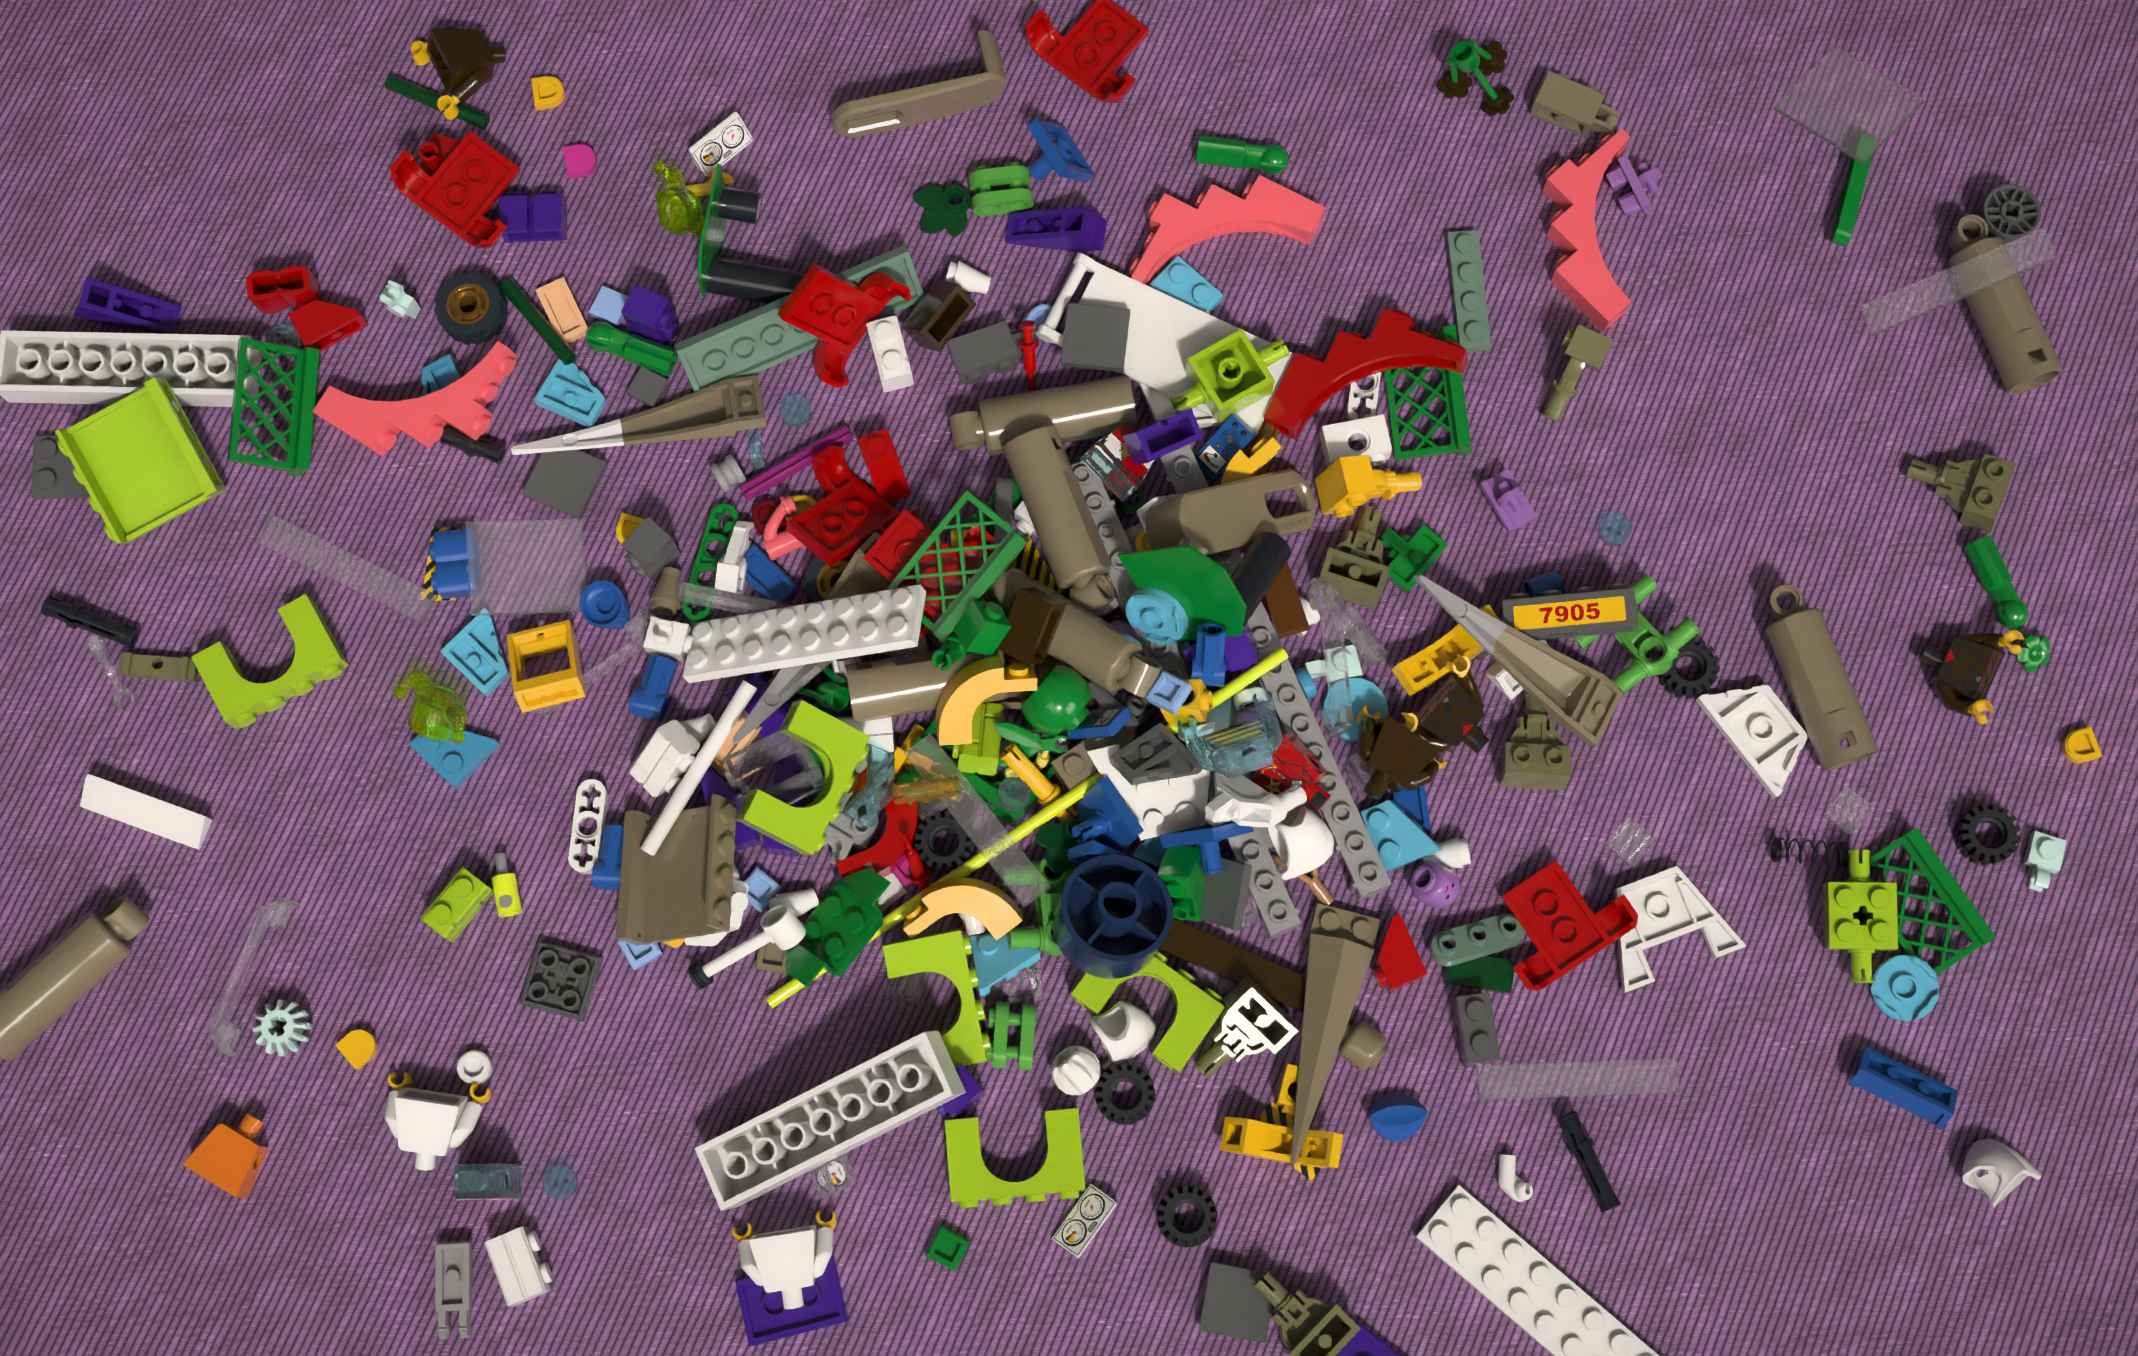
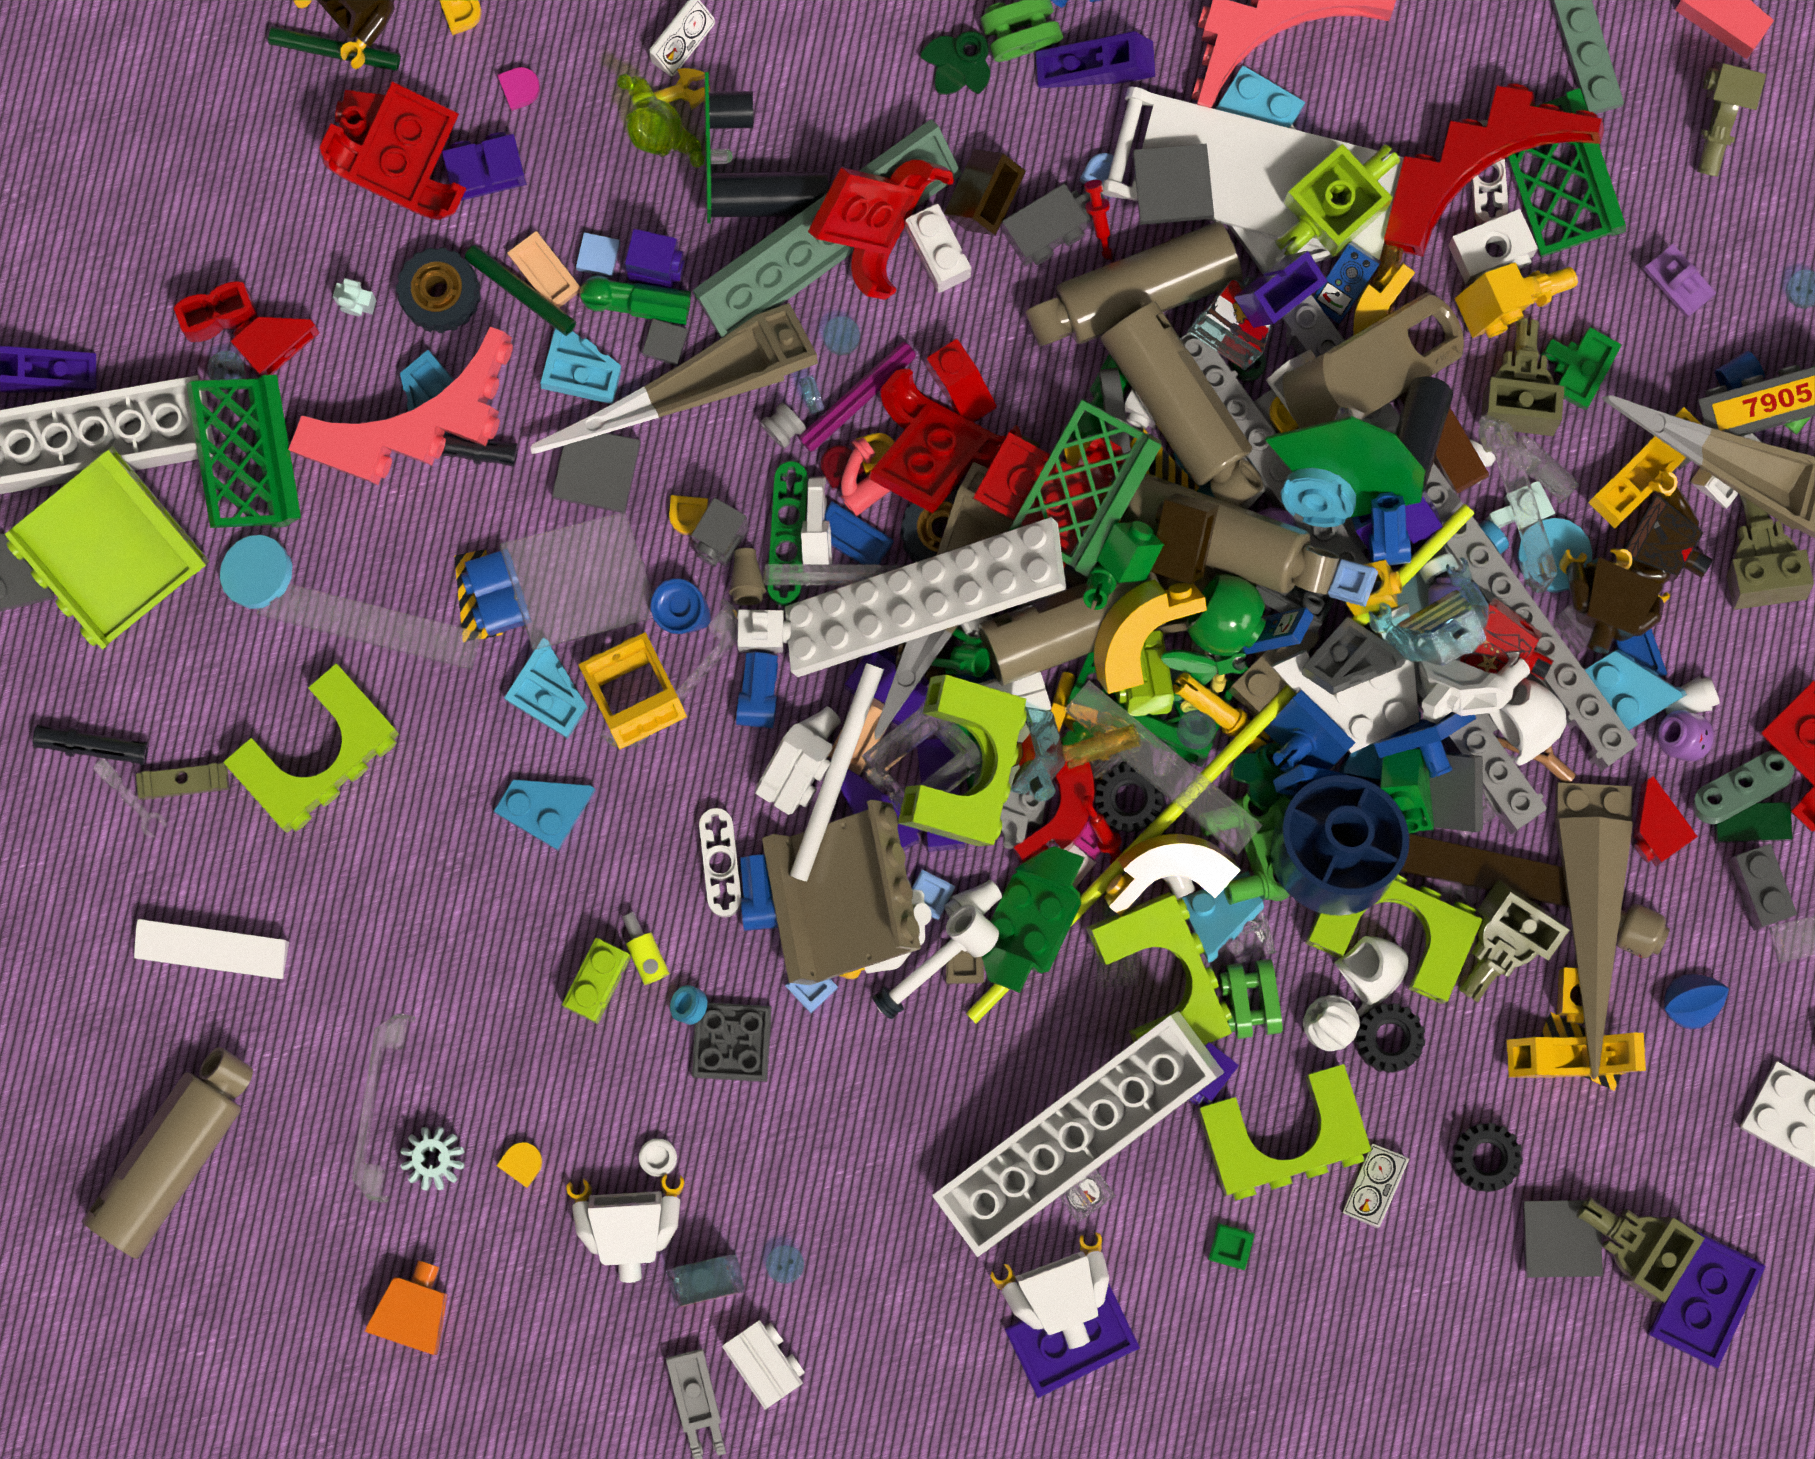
camera: 15 degrees left, 5 degrees up
(262, 506) = (255, 571): none -> medium azure tile
(436, 710) = (517, 765): clear neon green piece -> none
(531, 941) = (688, 1004): none -> dark azure tile
(967, 277) = (1005, 140): white cone -> none

